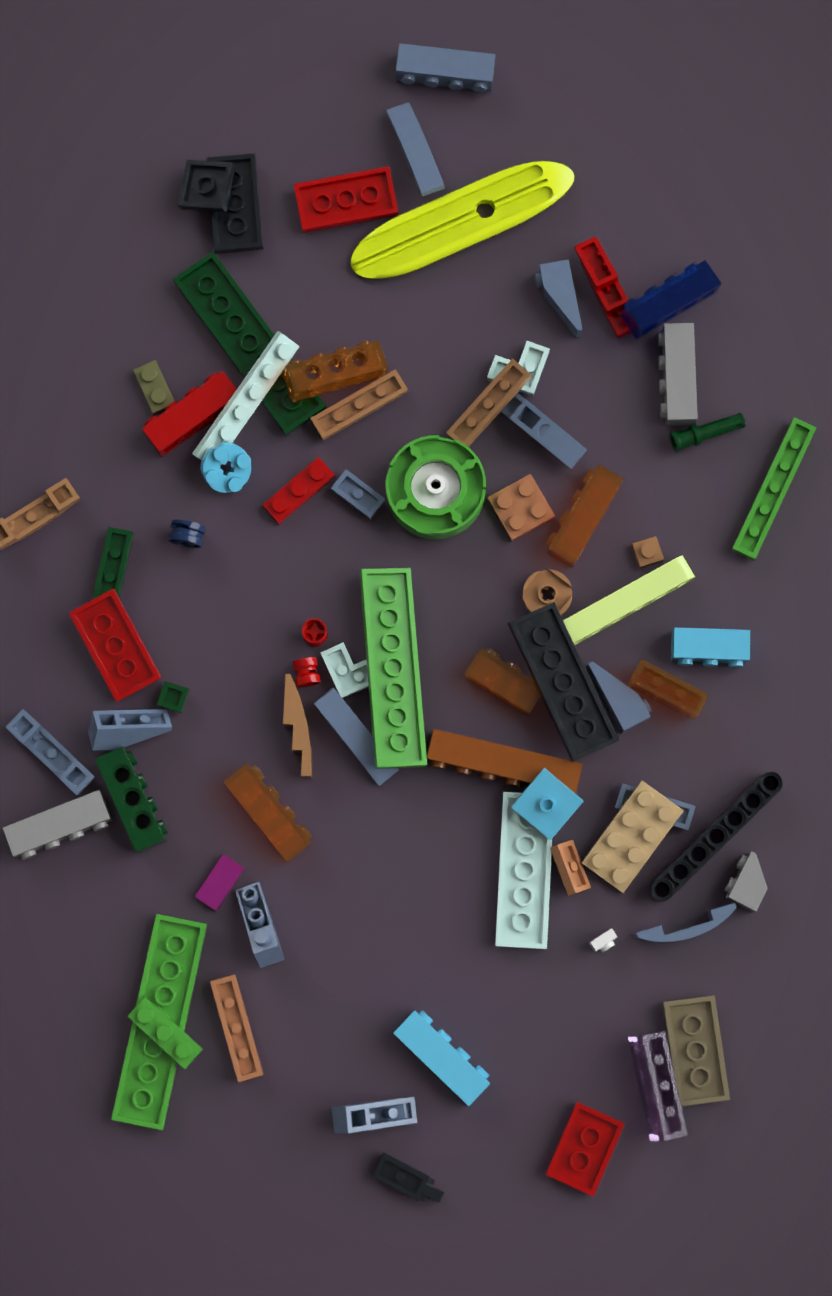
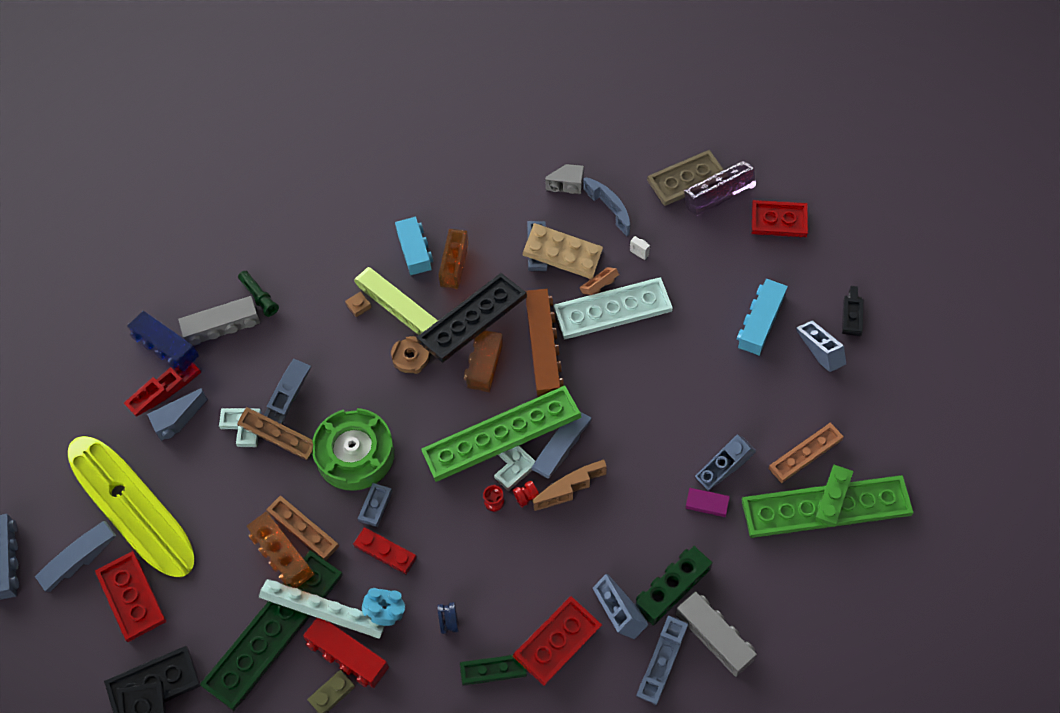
camera: 105 degrees left, 20 degrees down
(173, 697) = (581, 584): dark green plate -> none
(268, 813) = (642, 484): clear orange brick -> none
(521, 507) = (350, 392): nougat plate -> none
(547, 803) = (562, 302): medium azure plate -> none
(584, 516) = (344, 347): clear orange brick -> none
(623, 702) = (472, 280): sand blue slope -> none
(726, 830) = (543, 206): black beam -> none
(773, 489) = (288, 242): bright green plate -> none

